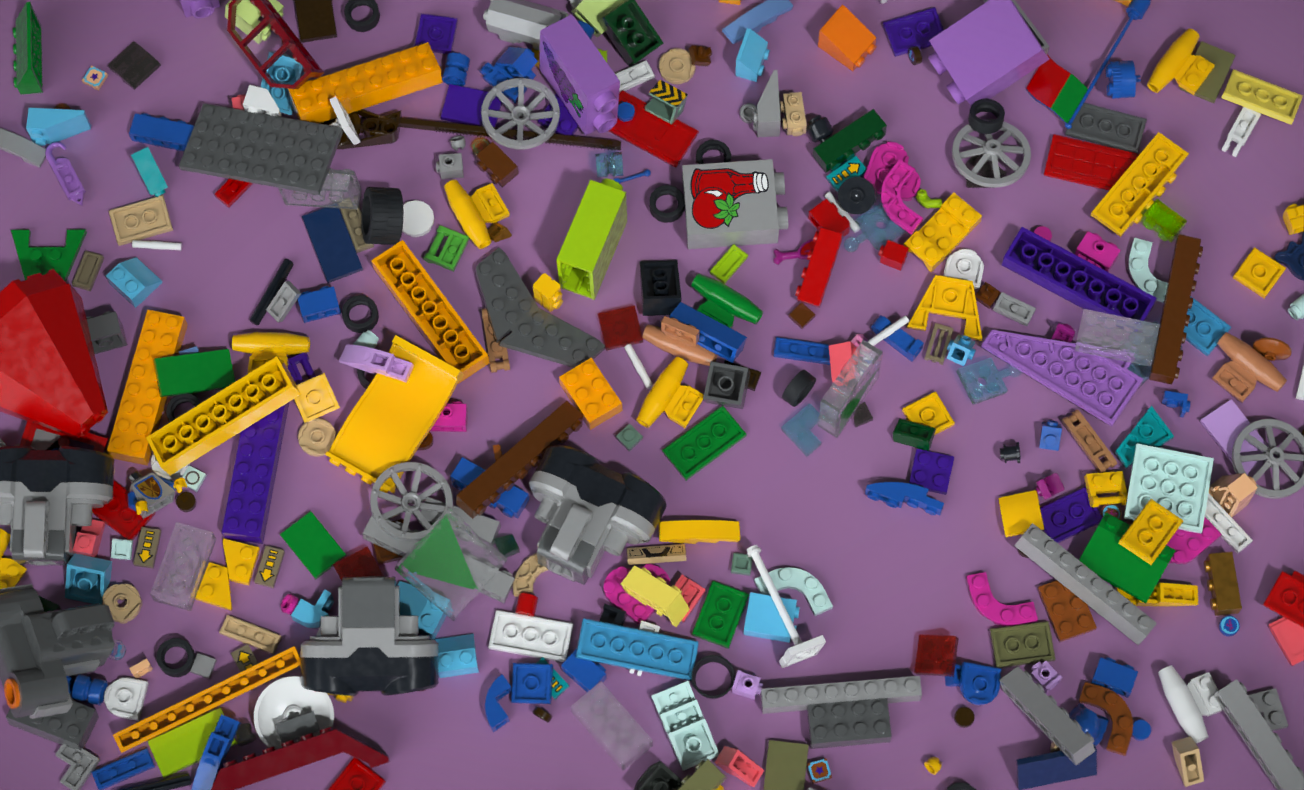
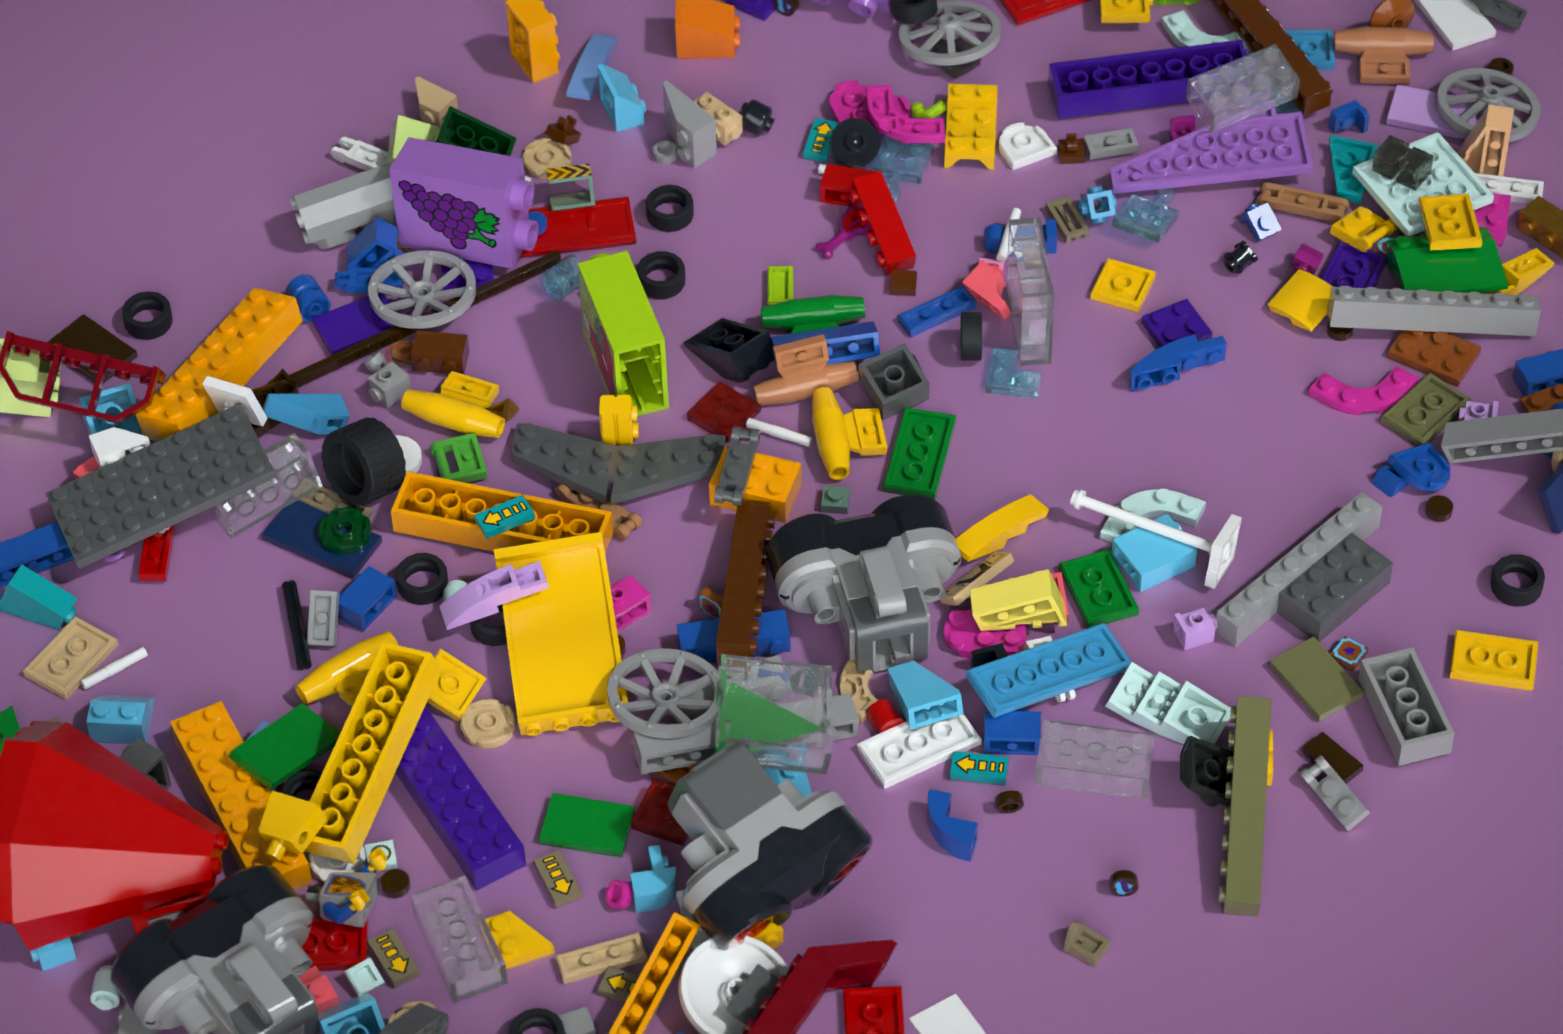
camera: 40 degrees left, 20 degrees down
(144, 431) = (289, 825): none -> yellow torso
(240, 560) = (517, 894): yellow wing -> none
(348, 259) = (347, 542): none -> dark green tile
(391, 156) = (310, 412): none -> dark azure slope
(425, 314) = (504, 516): none -> teal tile
(438, 32) = (249, 275): dark purple plate -> none
(457, 656) = (871, 806): medium azure slope -> none
(532, 683) = (969, 780): blue tile -> none
(552, 609) = (923, 695): none -> medium azure slope
(580, 380) = (737, 466): none -> dark grey plate
(708, 659) = (1154, 625): black tyre -> none
(733, 203) = (733, 227): light grey brick -> none
(739, 765) = (1283, 700): coral arch -> none
(741, 564) = (1072, 530): sand green tile -> none
(849, 141) = (797, 107): dark green brick -> none
(862, 415) = (1060, 327): clear smoke tile -> none
(893, 255) = (943, 172): red brick -> none
(913, 434) = (1127, 305): dark green slope -> none
(933, 765) = (1459, 570): yellow hinge -> none
(936, 655) = (1356, 469): clear red plate -> none
(949, 298) = (1042, 172): yellow wing -> none
(1098, 251) = (1139, 41): dark pink brick -> none
(1166, 470) = (1396, 155): none -> clear smoke piece

